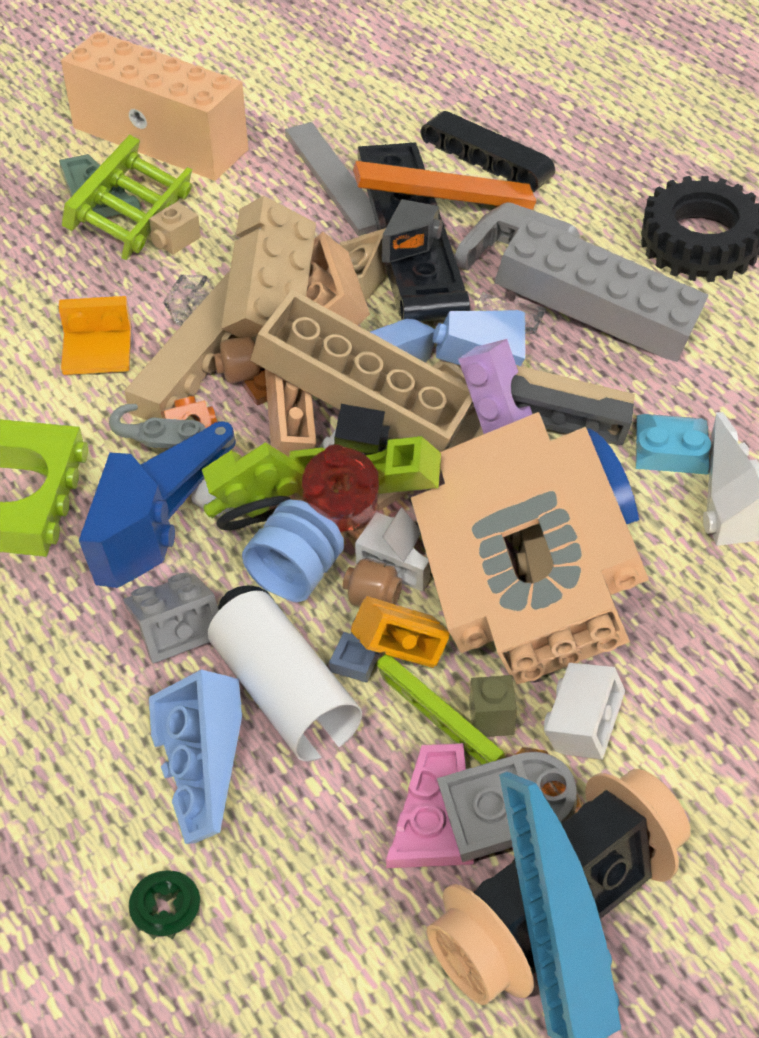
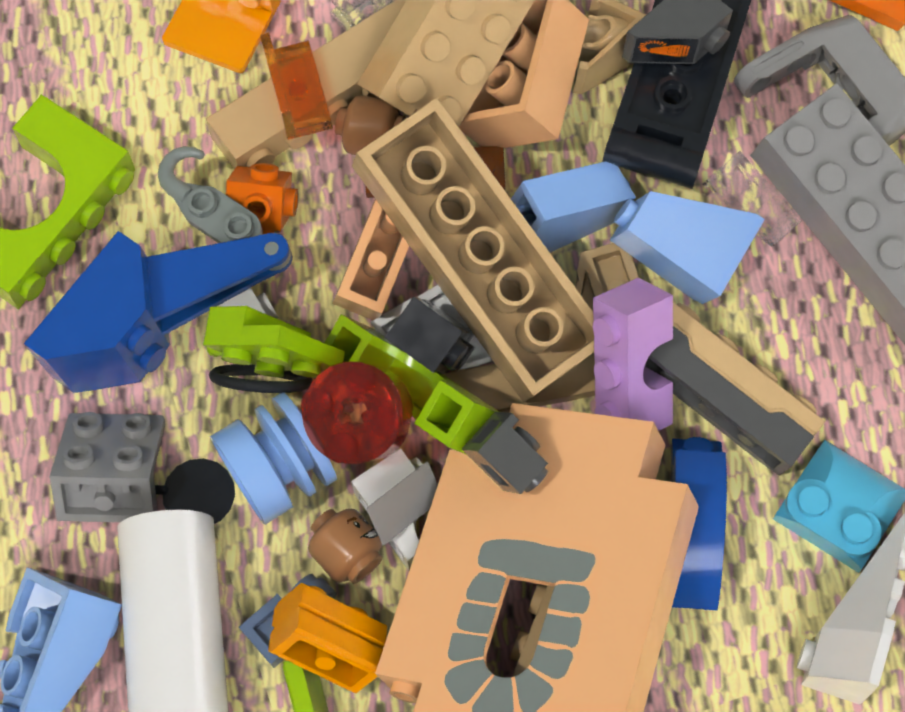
camera: 30 degrees right, 20 degrees up
(177, 348) = (297, 88): none -> clear orange panel
(458, 463) = (507, 454): none -> dark grey brick

